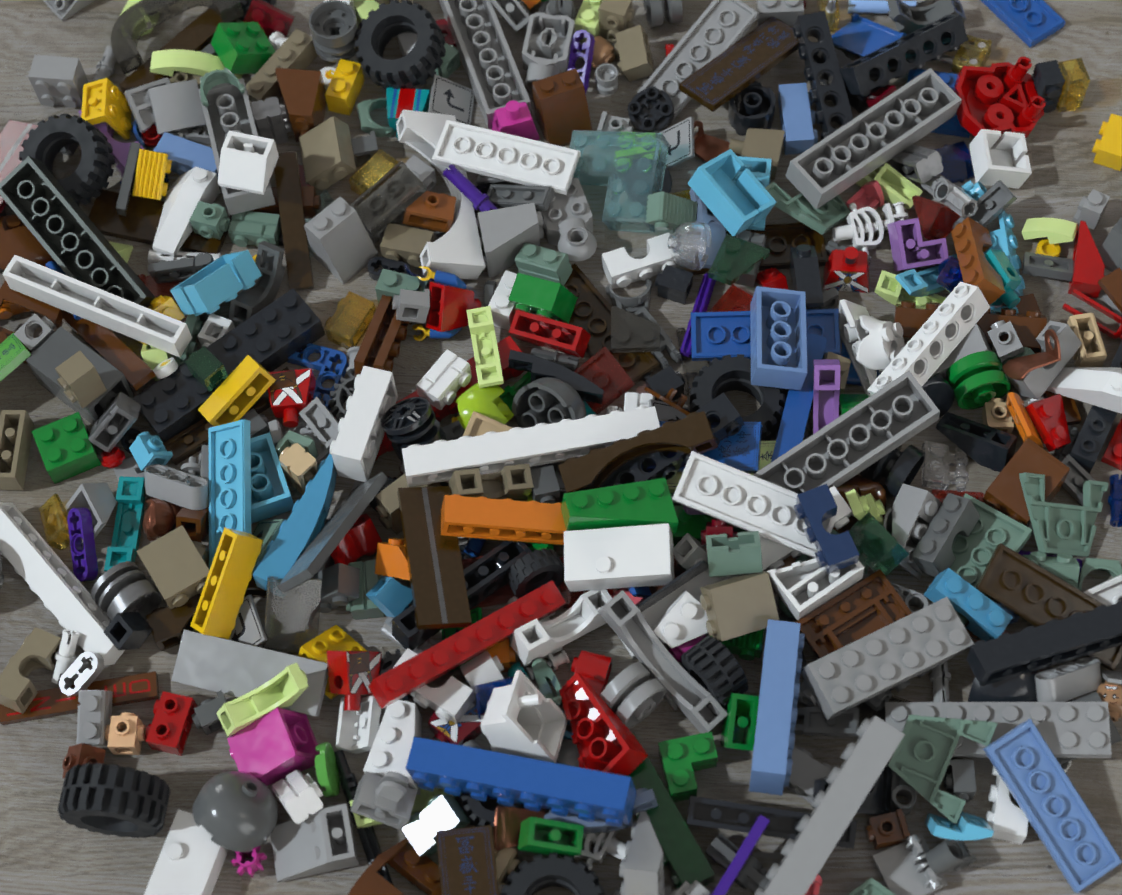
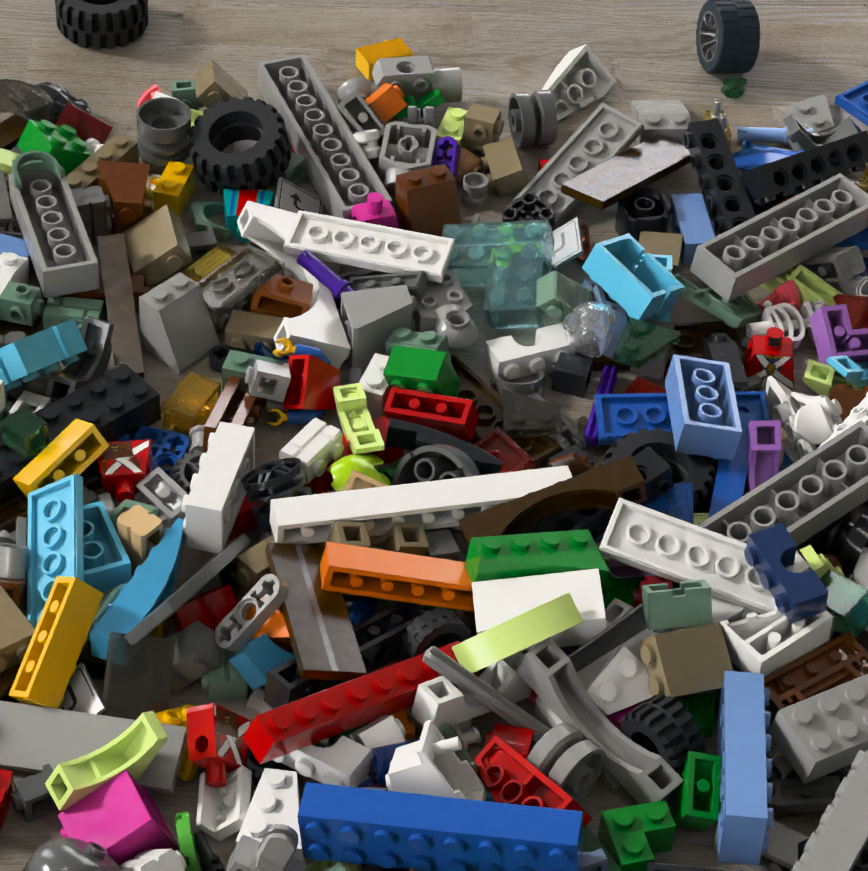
camera: 10 degrees left, 20 degrees down
(247, 162) = (72, 232): white slope -> none
(372, 559) = (264, 609): none -> light grey beam
(514, 33) = (368, 142): none -> white wheel
(573, 632) = (483, 692): none -> light grey axle
(598, 587) = (518, 633): none -> yellowish green slope

